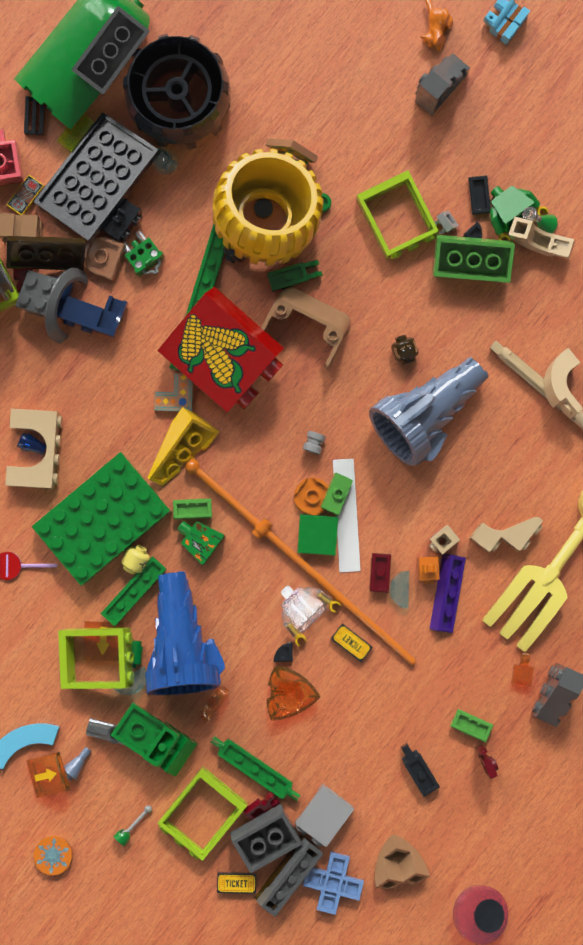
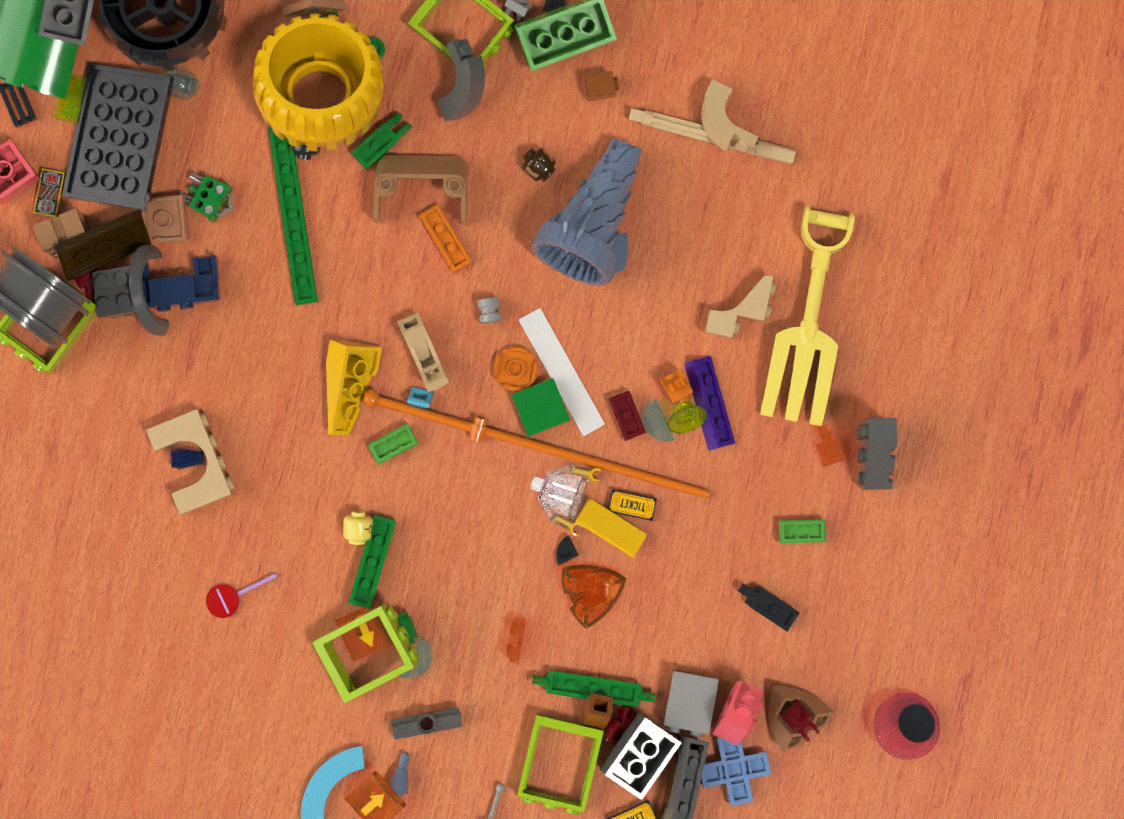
camera: 30 degrees left, 0 degrees up
(101, 519) = (300, 501): green brick -> none
(122, 221) = (169, 170): black brick -> none
(154, 739) = (470, 708): green piece -> none
(179, 398) = (322, 330): nougat tile -> none
(179, 656) = (456, 608): blue cone -> none
(200, 540) = (417, 473): green torso -> none
(222, 351) = (344, 258): red brick -> none
(229, 483) = (420, 397): none -> medium azure slope
(248, 450) = (423, 352): none -> tan arch
(249, 788) = (597, 711): none -> dark orange brick
(263, 208) = (314, 85): black tile -> none
(307, 372) = (445, 238): none -> orange tile
(327, 652) = (611, 528): none -> yellow slope
(336, 494) = (539, 354): bright green plate -> none
(357, 842) = (739, 713): none -> coral hinge
(381, 262) = (468, 84): none -> dark grey arch
(401, 870) = (800, 719): none -> dark red plate
(424, 596) = (686, 418): none -> clear neon green piece
(450, 537) = (682, 341): tan brick -> none
(480, 312) = (601, 85): none -> dark orange brick
(488, 763) = (838, 562): dark red plate -> none

